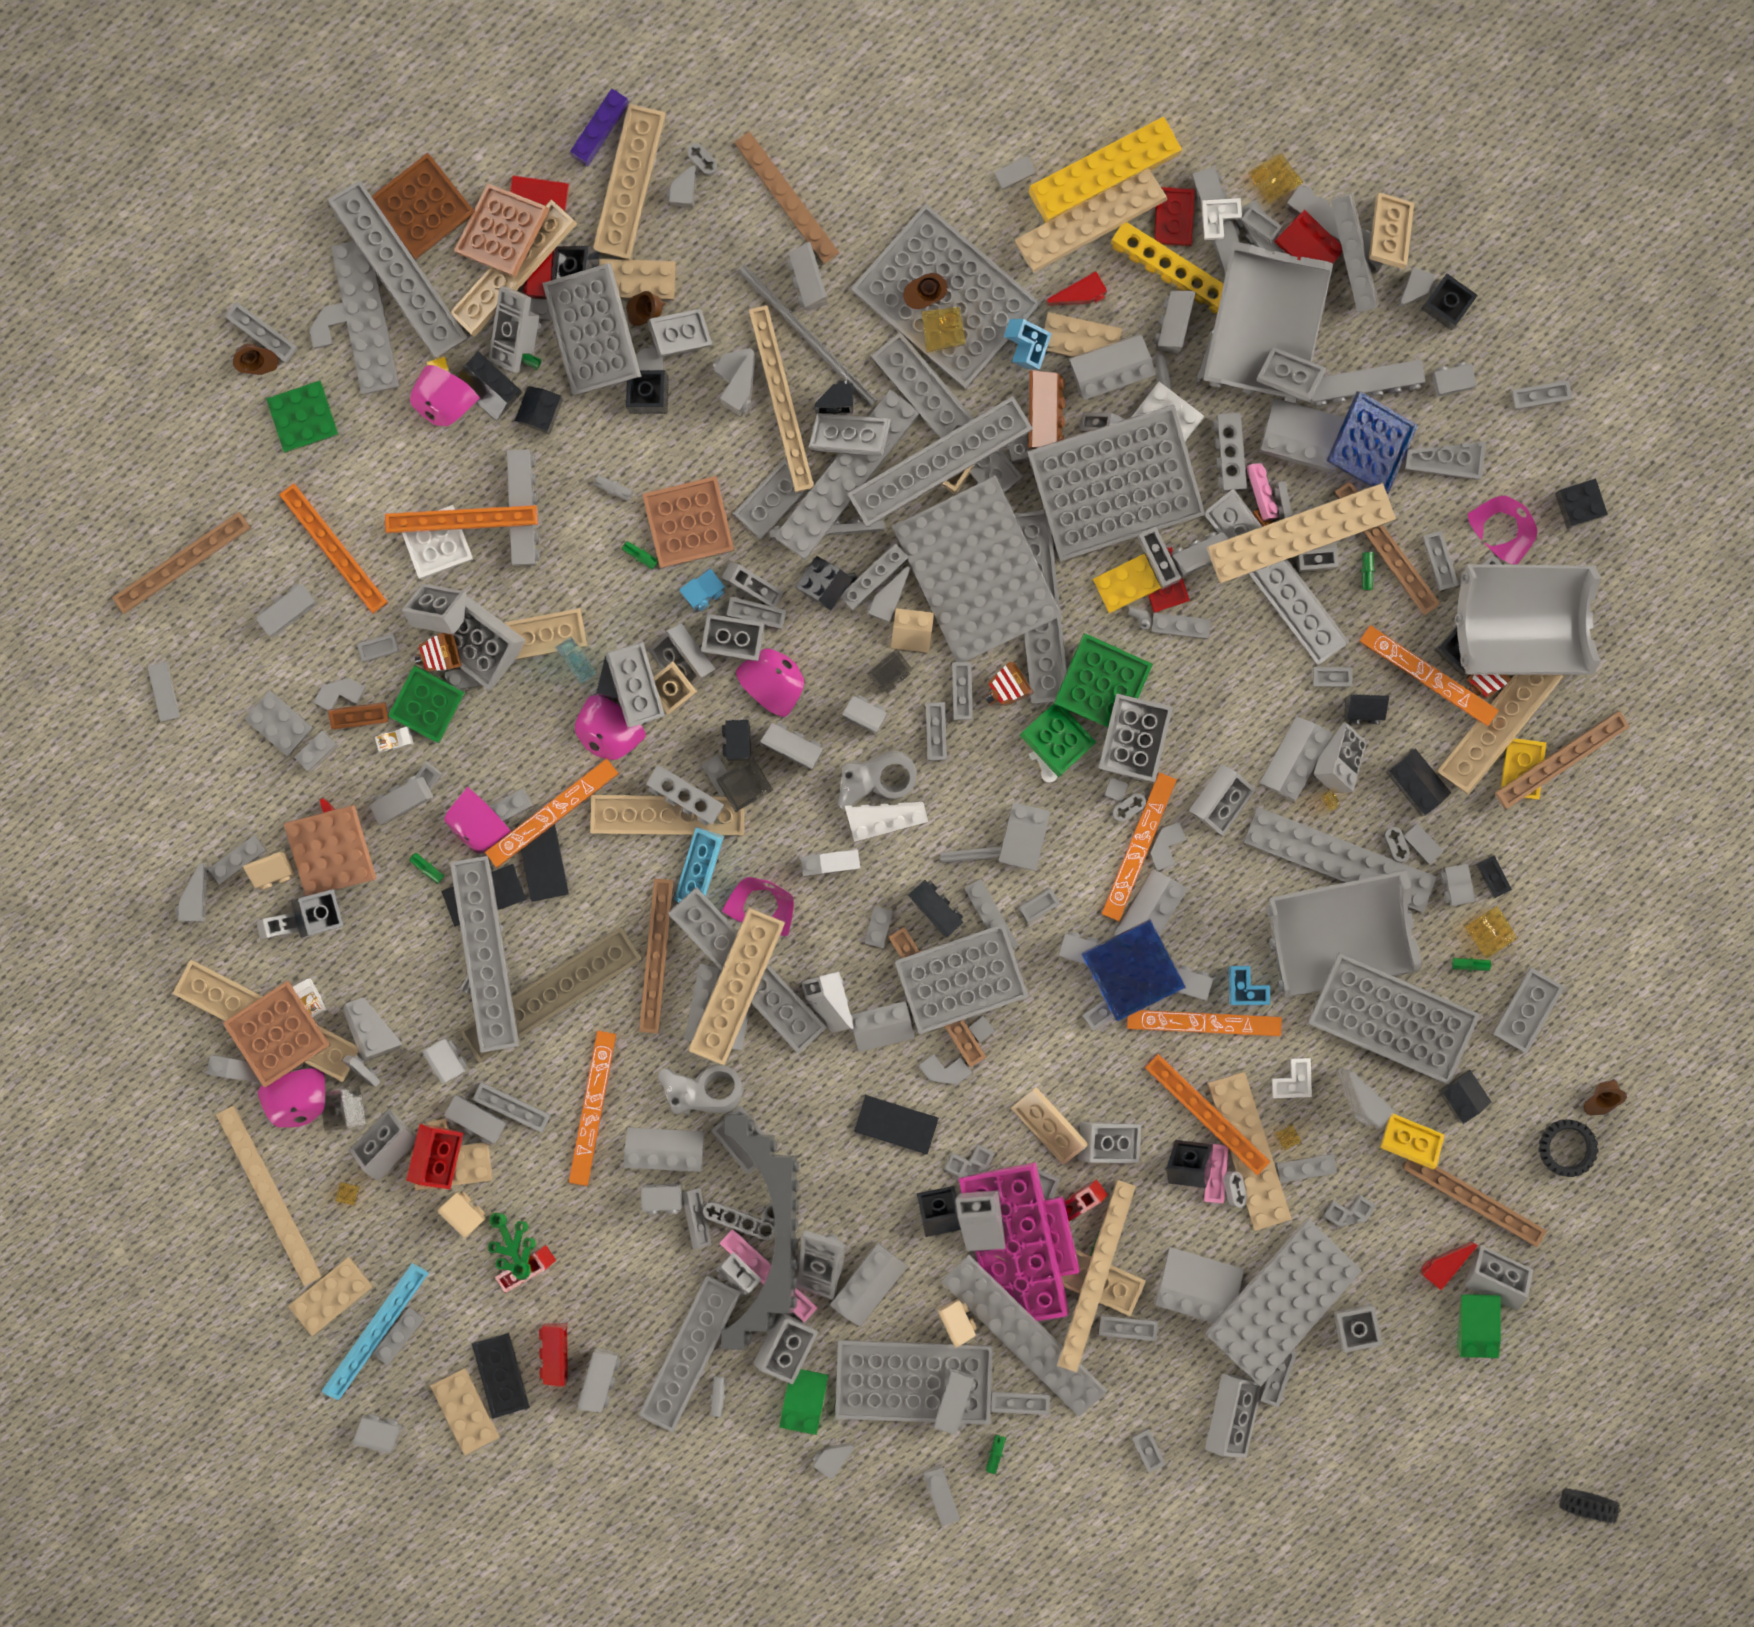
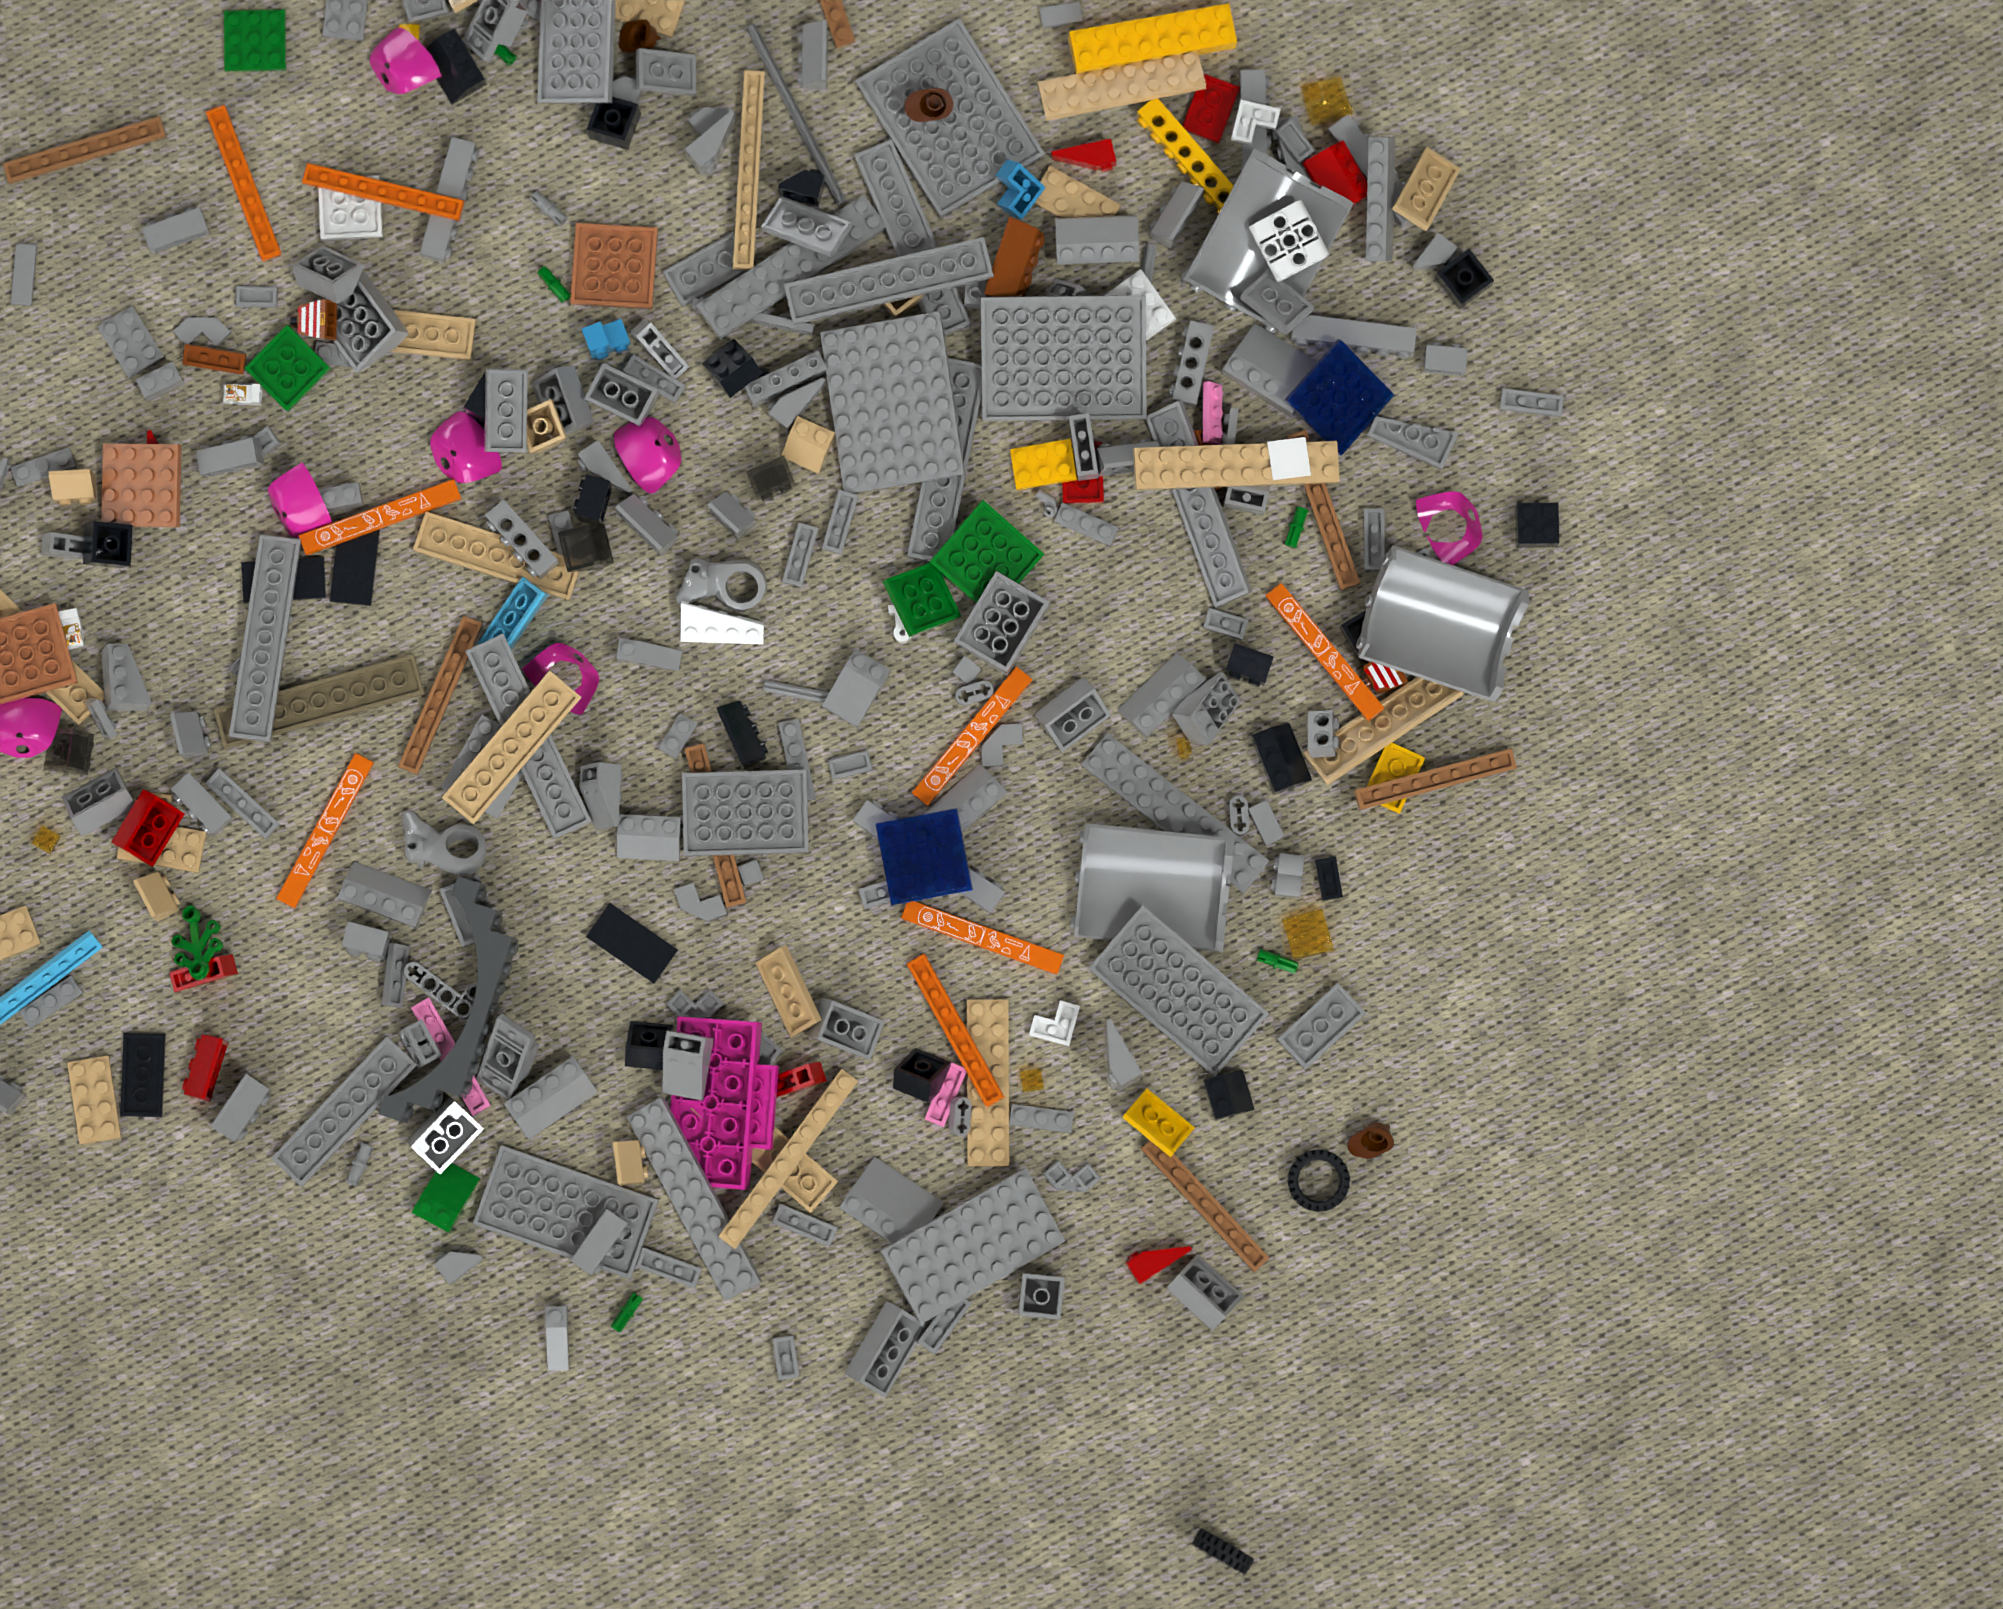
camera: 15 degrees right, 5 degrees down
(426, 868) = (234, 534): green axle -> none
(539, 409) = (498, 106): black slope -> none
(575, 660) = (454, 369): clear light blue brick -> none
(733, 705) = (600, 465): none -> light grey slope
(943, 329) = (935, 149): clear yellow plate -> none
(1008, 686) = (888, 531): torso -> none
(1241, 990) = (1032, 917): dark azure brick -> none
(1309, 320) = (1266, 229): none -> white connector
(1346, 512) = (1289, 458): none -> white sticker
(1446, 751) = (1319, 734): none -> light grey brick
(1479, 1326) = (1168, 1332): green slope -> none

